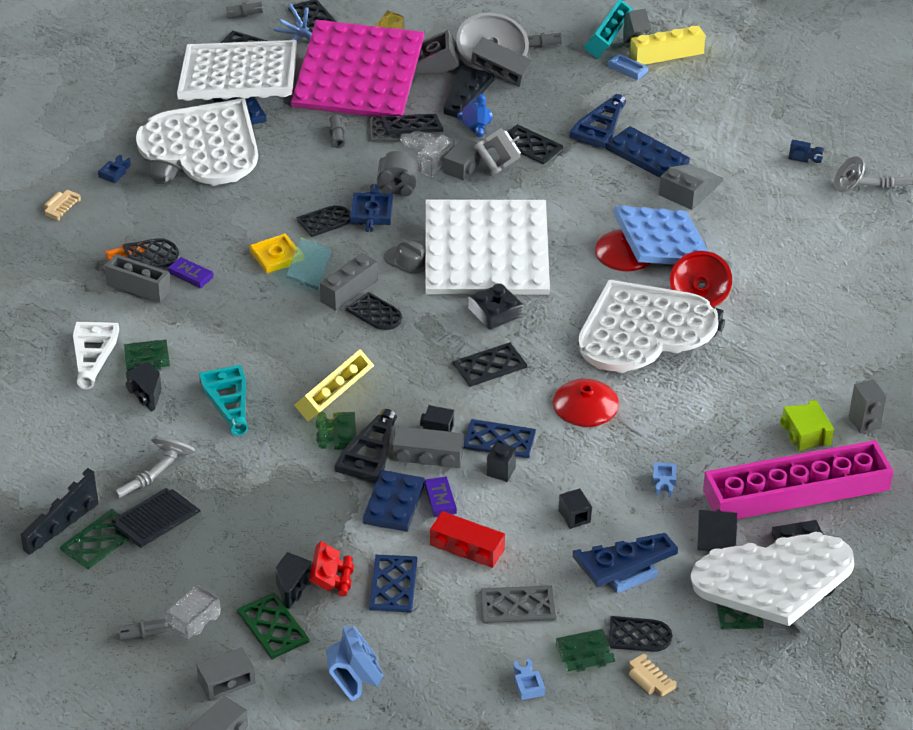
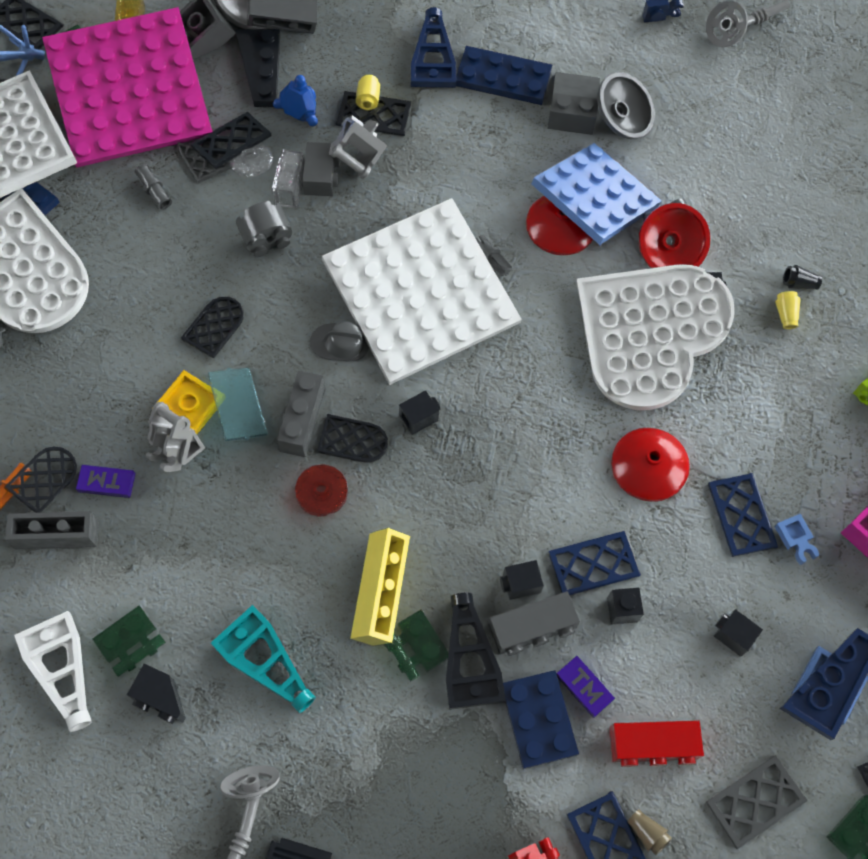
camera: 30 degrees left, 25 degrees up
(251, 259) = (174, 438): none -> light grey piece
(333, 328) = (324, 502): none -> clear red plate
(371, 208) = (260, 287): dark blue plate -> none
(426, 585) = (649, 832): none -> dark tan cone
(433, 310) = (419, 412): none -> black brick
(486, 375) = (525, 476): black window -> none
(495, 306) = (480, 386): black brick -> none
(531, 127) = (368, 92): none -> light yellow brick
(555, 247) = (494, 257): none -> dark grey axle
(629, 473) = (728, 529): none -> dark blue window
(725, 194) = (625, 105): none -> dark grey dish
(765, 353) = (788, 308): none -> light yellow cone
(790, 340) = (800, 278): none -> black cone

